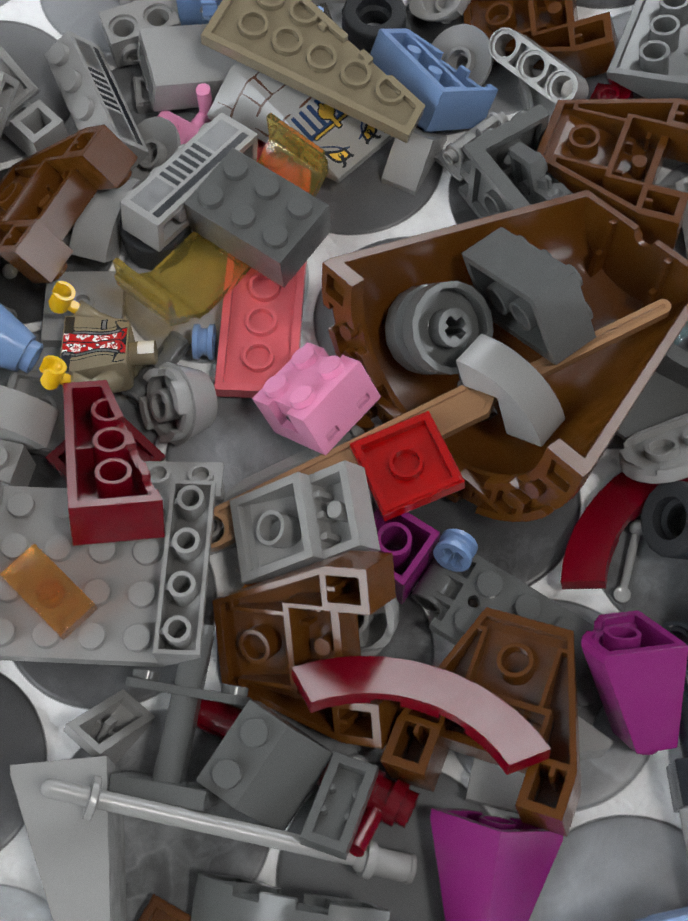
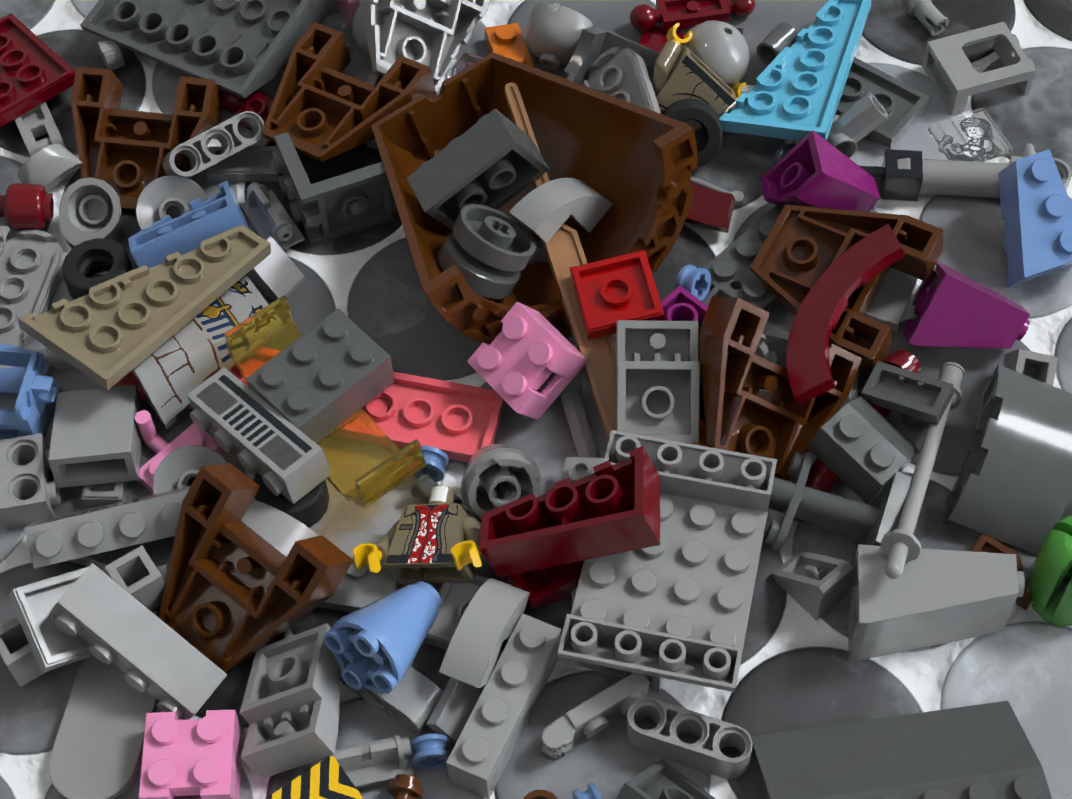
camera: 80 degrees left, 10 degrees down
(49, 591) = (695, 580): clear orange plate -> none
(530, 175) = (338, 160): dark grey hinge -> none

